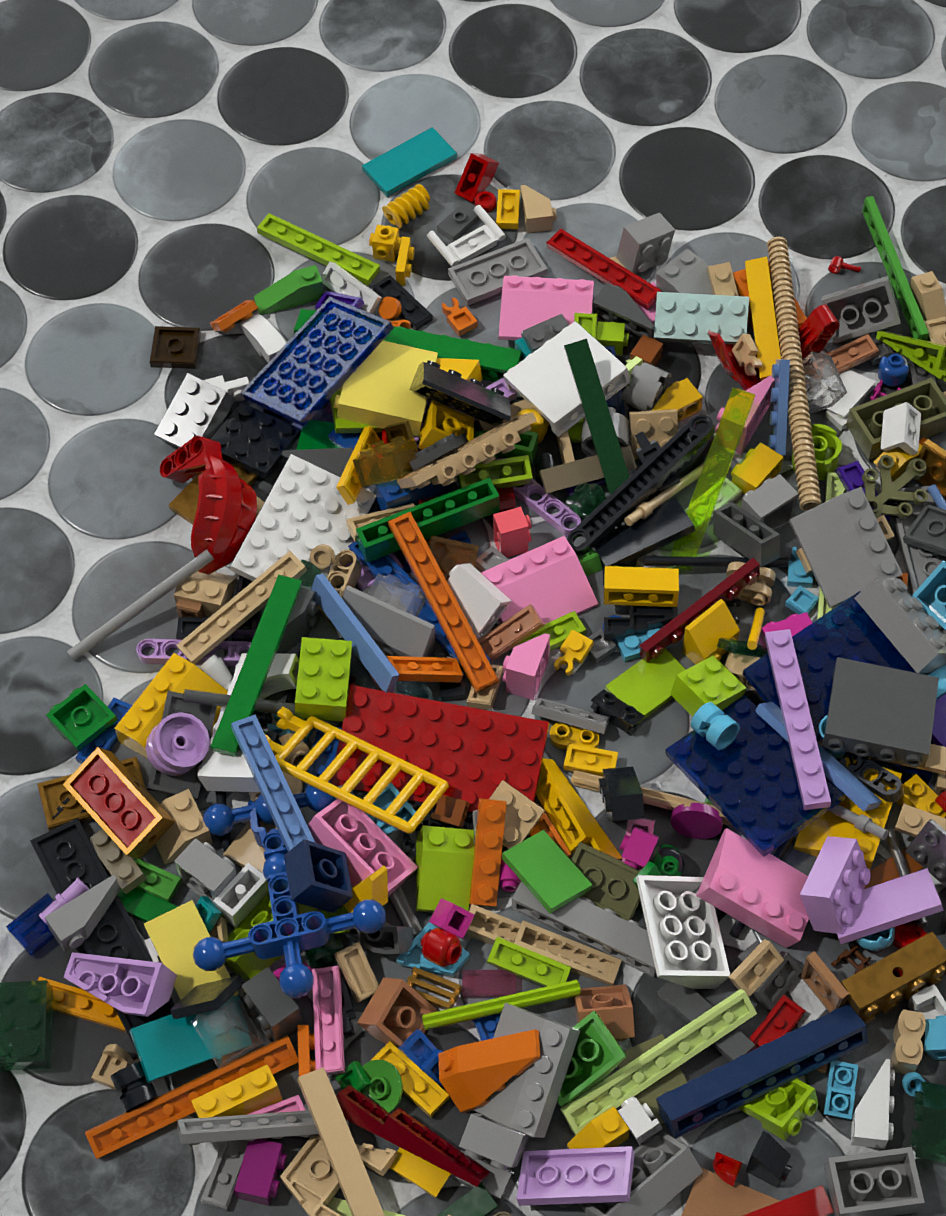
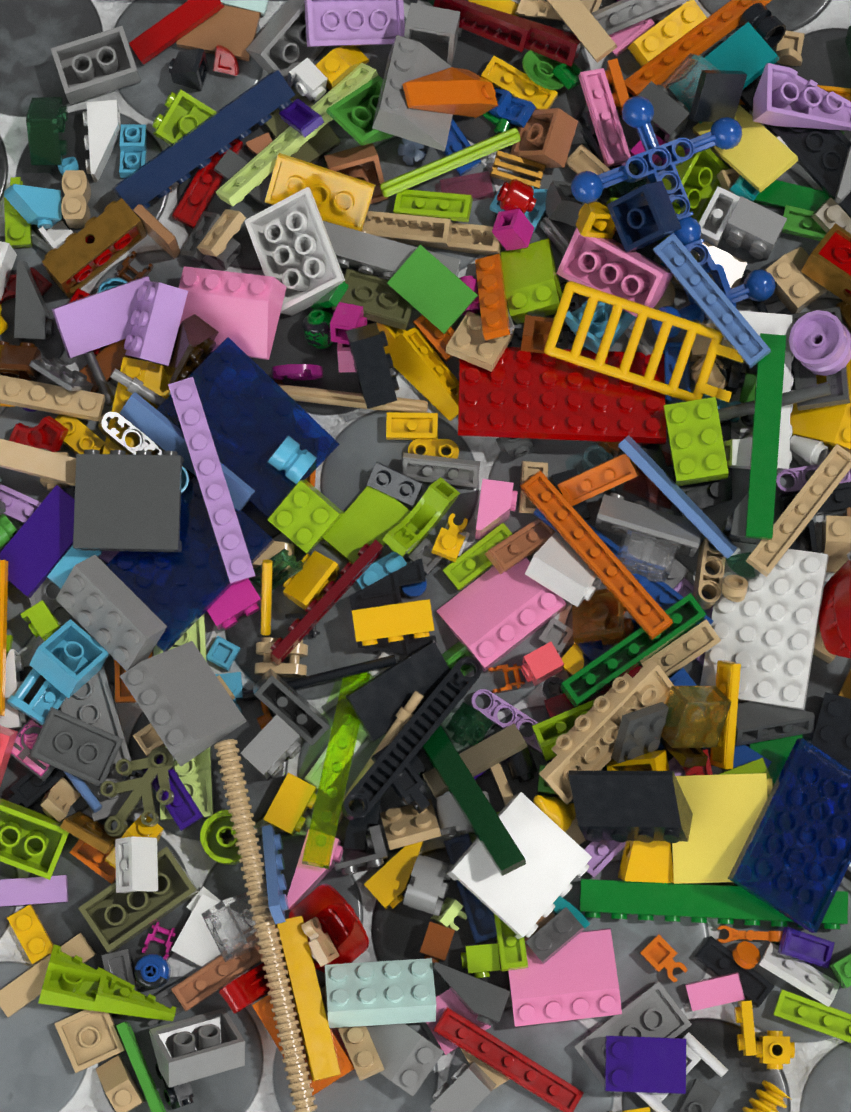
camera: 170 degrees right, 20 degrees up
(422, 288) = (715, 991): none -> bright pink tile
(437, 1038) = (502, 124): none -> green hand
(483, 540) = (573, 660): none -> yellow tile
(495, 242) = (645, 1064): none -> dark purple slope
(544, 532) = (505, 670): none -> orange piece
(585, 683) = (422, 518): none -> lime arch
(645, 991) = (337, 196): none -> yellow tile
(652, 1072) = (301, 117): none -> dark purple tile
(692, 406) = (375, 843): none -> flat silver bracket
(697, 1067) = (259, 143): none -> nougat tile
(798, 858) = (192, 344): none -> dark brown slope

